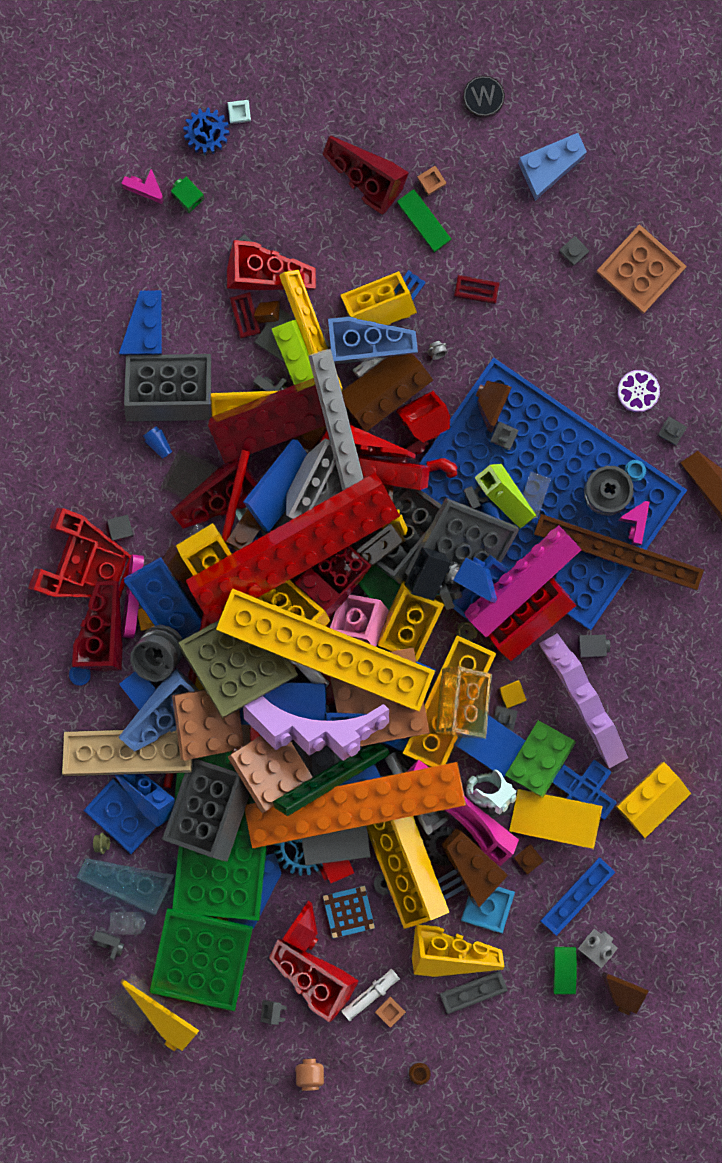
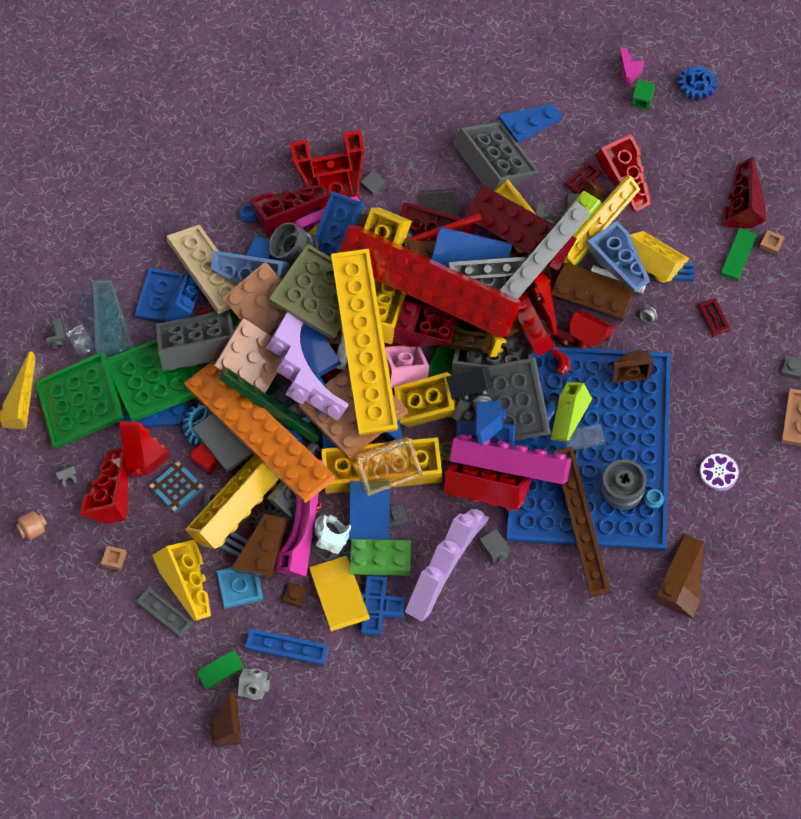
camera: 70 degrees right, 20 degrees down
(101, 843) = (130, 291): olive plate -> none
(157, 441) = (452, 170): blue cone -> none
(239, 112) = (727, 97): light aqua tile -> none
(372, 993) = (127, 539): white pin -> none
(419, 1073) = (76, 607): reddish brown plate -> none
(472, 497) = (552, 392): dark grey tile -> none
(504, 436) = (615, 392): dark grey tile -> none
(512, 694) = (419, 510): yellow slope -> none
(638, 517) = (618, 520): dark pink slope -> none
(653, 799) = (400, 661): yellow slope -> none
(672, 431) = (705, 513): dark grey tile -> none

